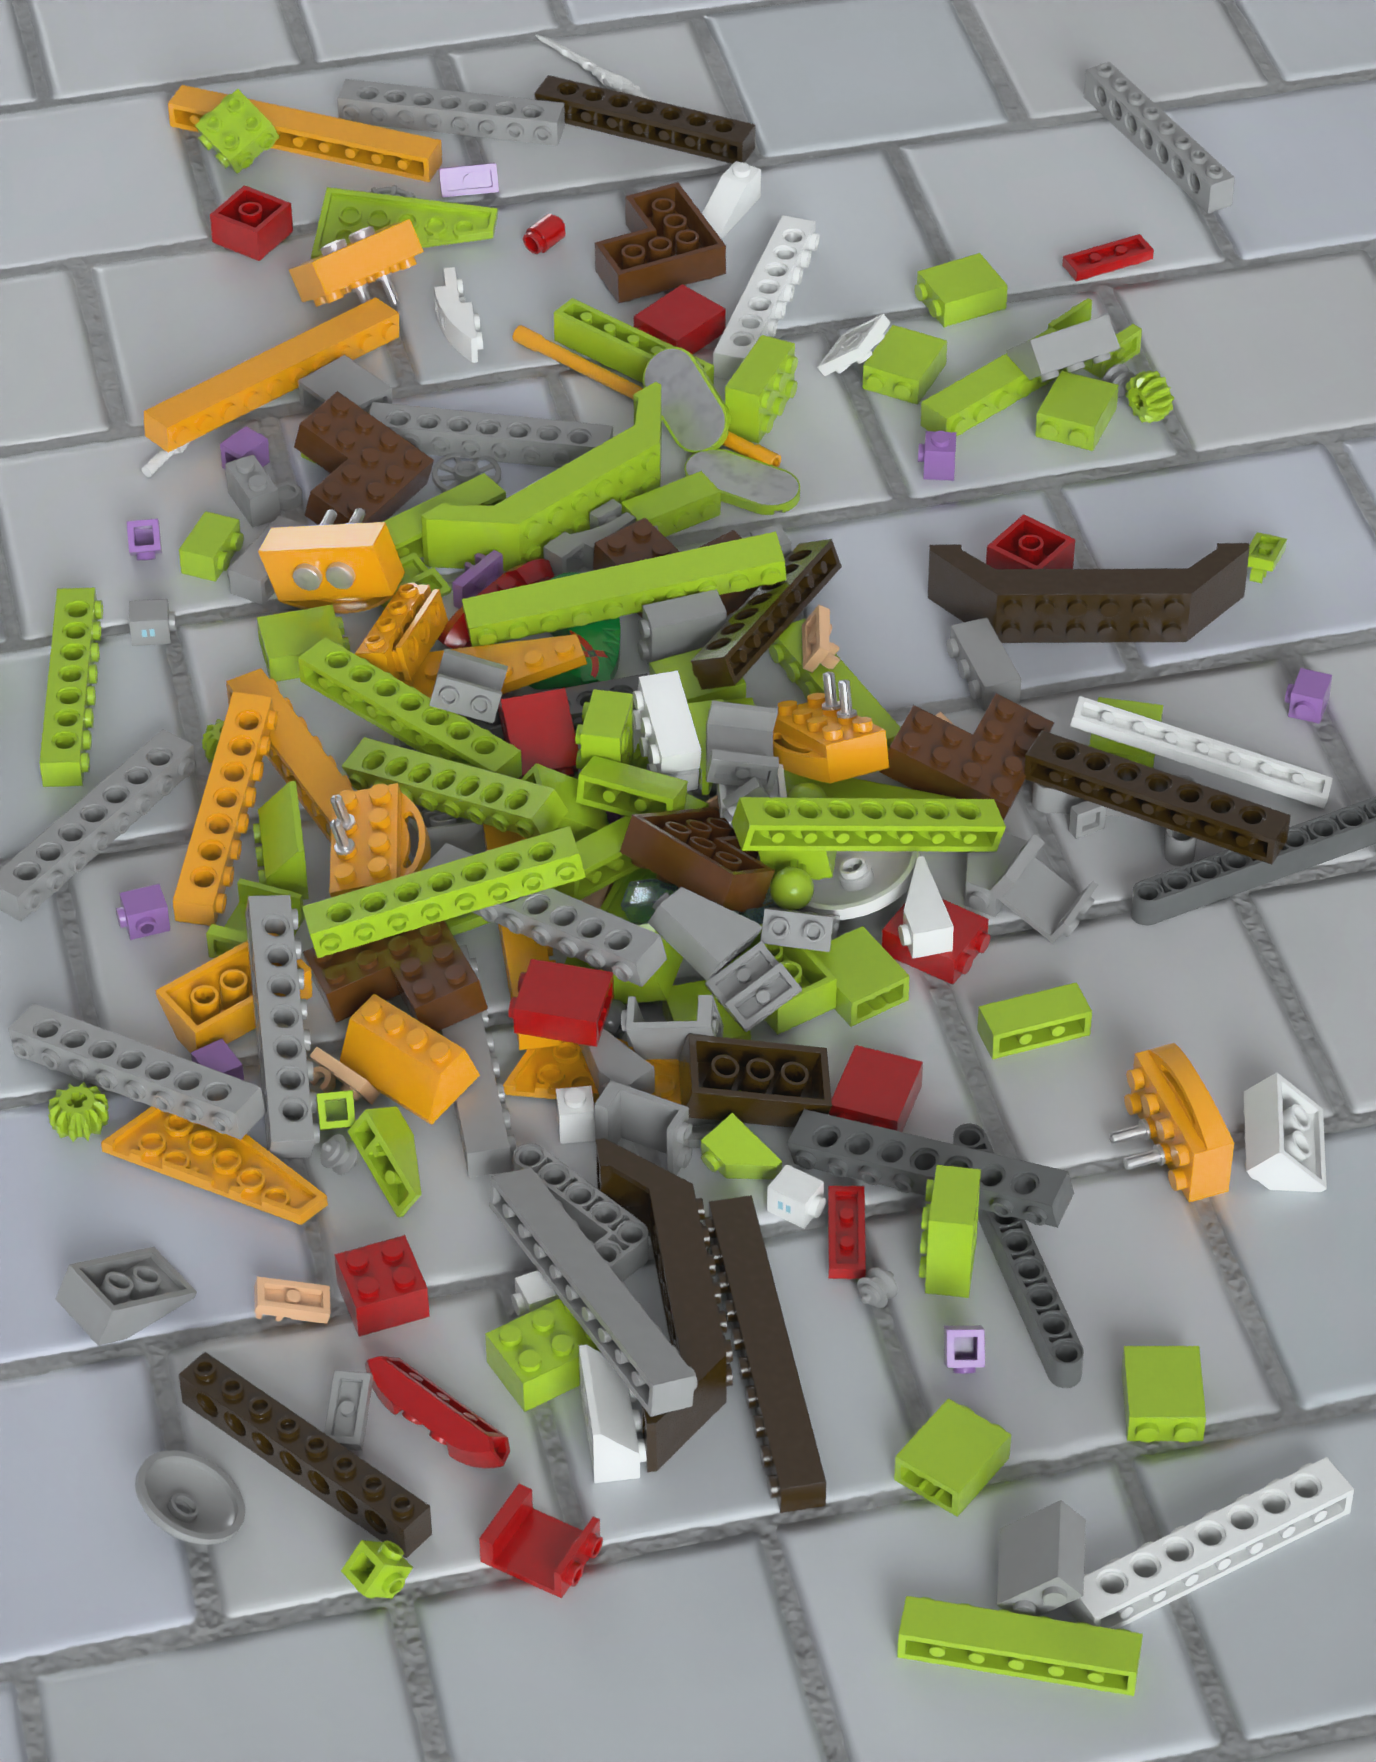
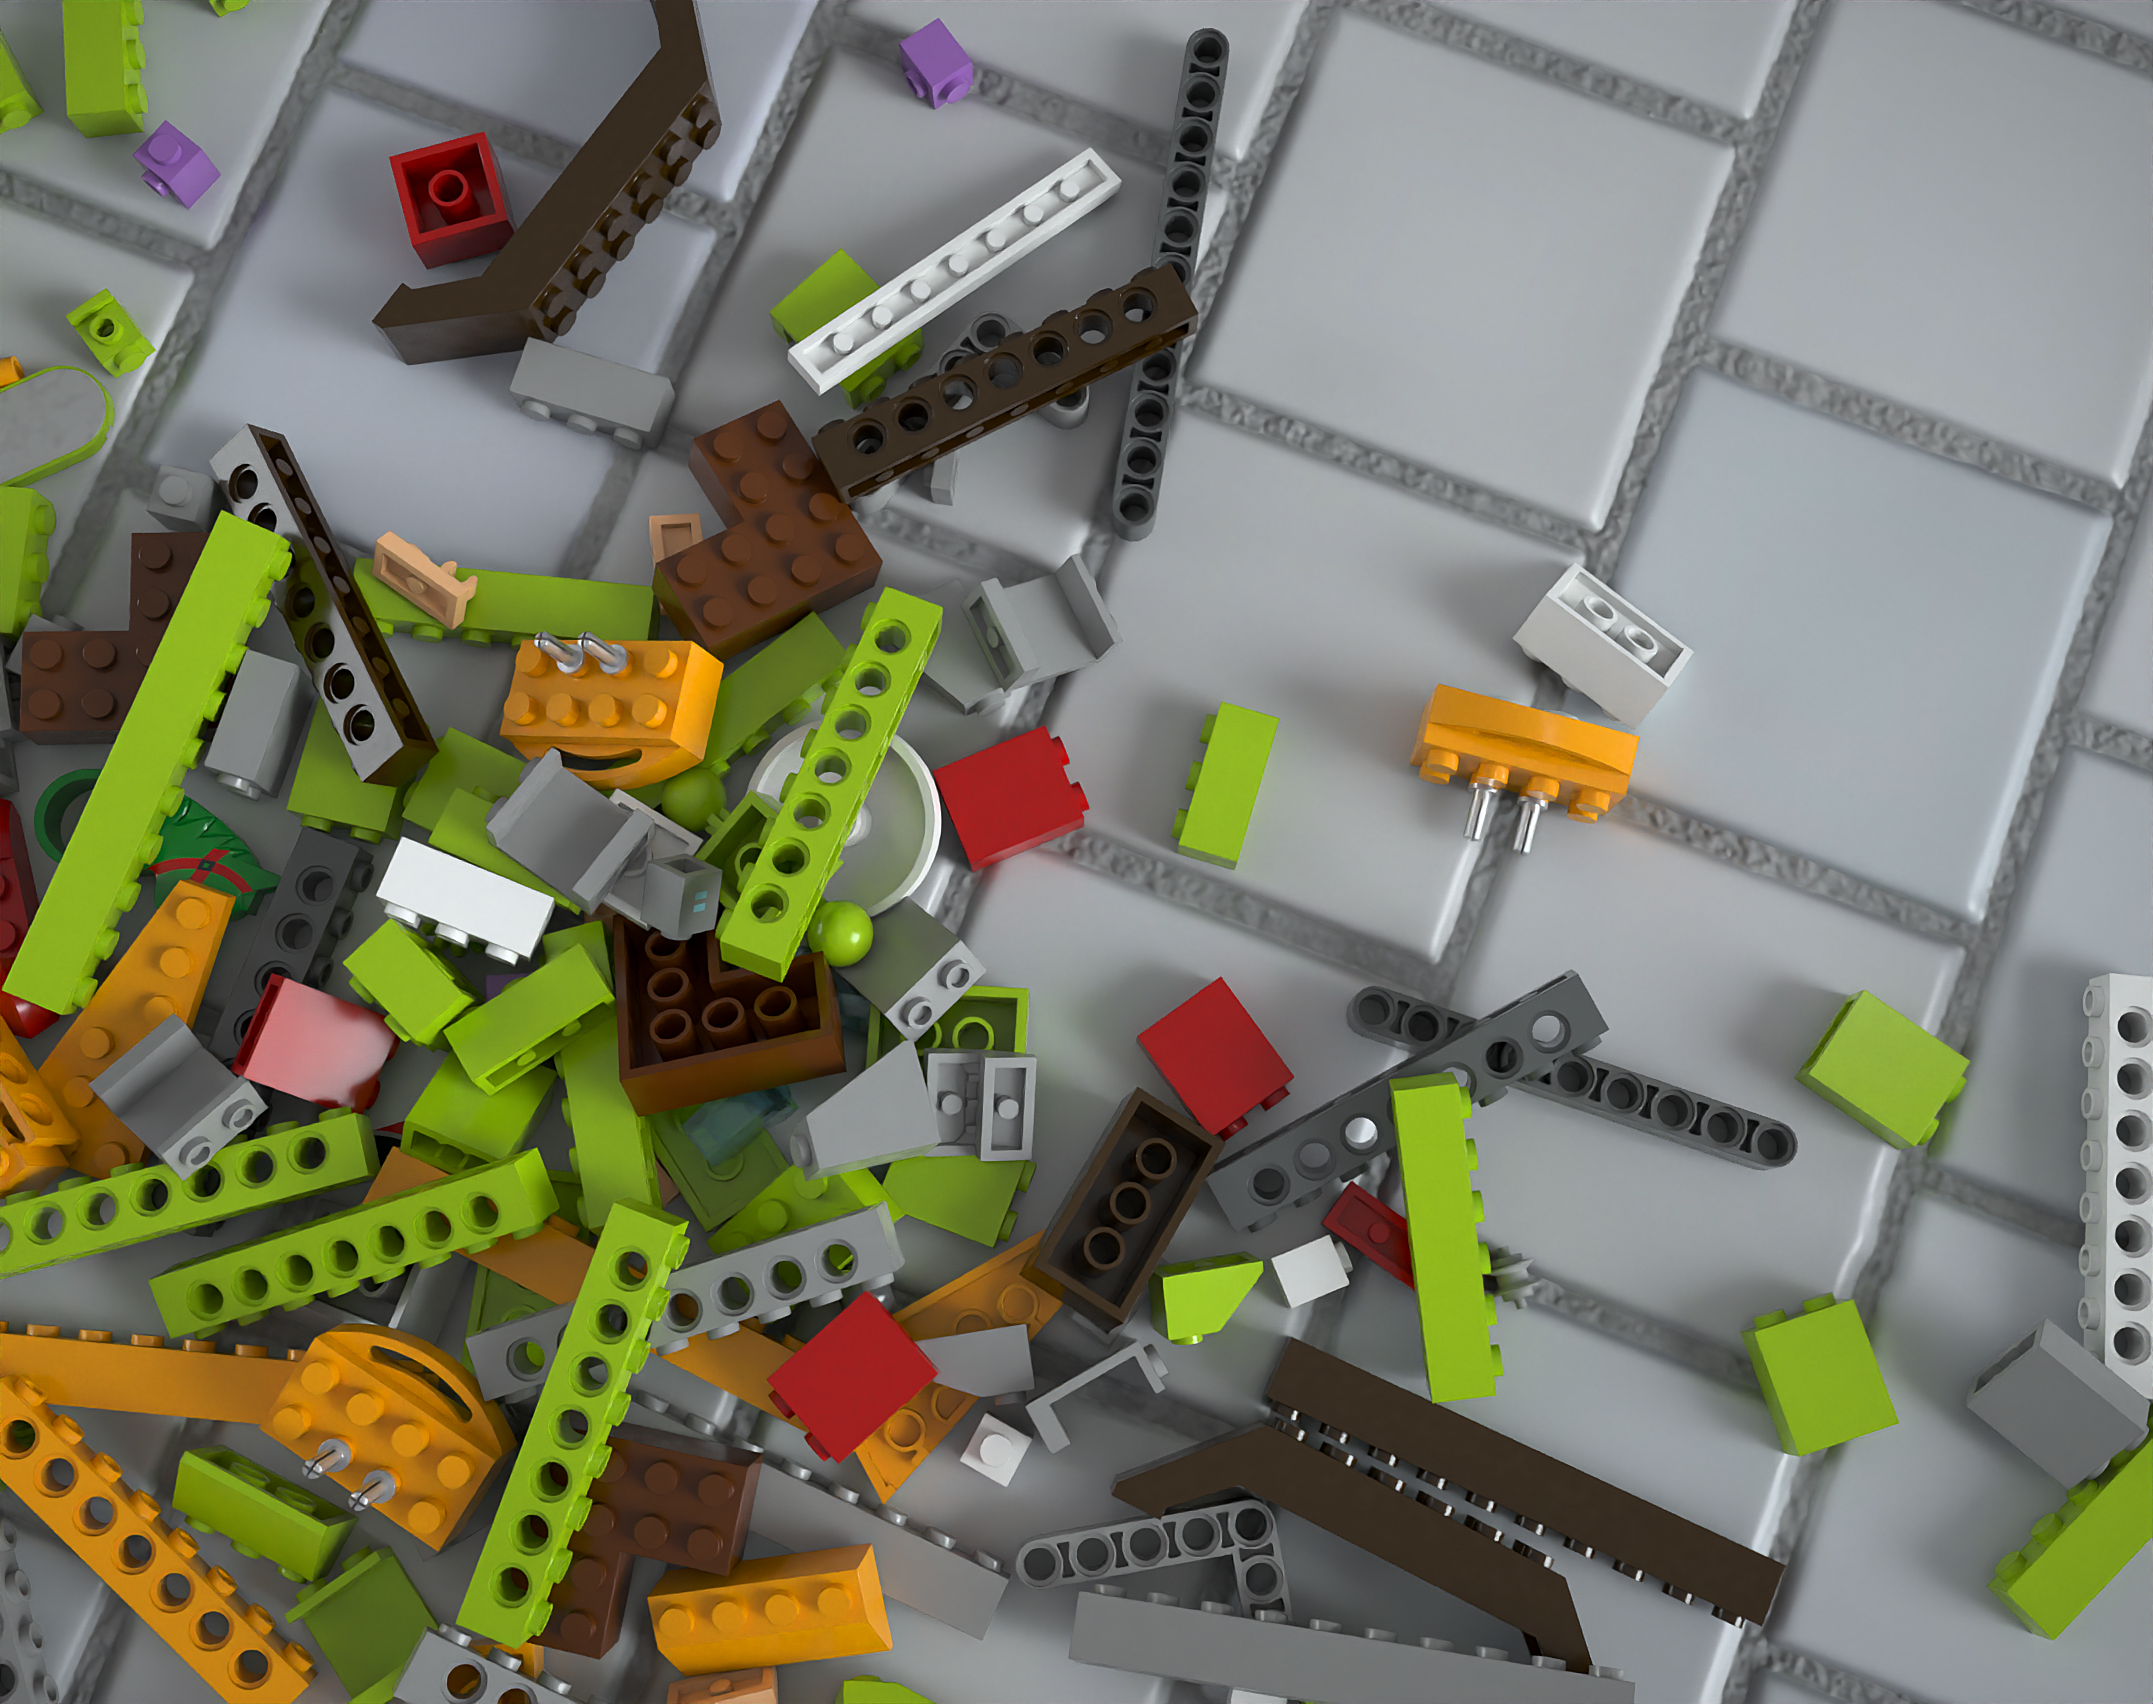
camera: 55 degrees left, 35 degrees up
(667, 1038) = (999, 1273): light grey panel -> none
(828, 481) = (111, 333): none -> lime brick
(865, 1216) = (1444, 1238): none -> lime brick
(866, 976) = (1013, 933): lime brick -> none
(925, 918) = (1008, 810): white slope -> none
(950, 1231) = (1534, 1154): lime brick -> none
(964, 1348) = (1680, 1250): brick -> none

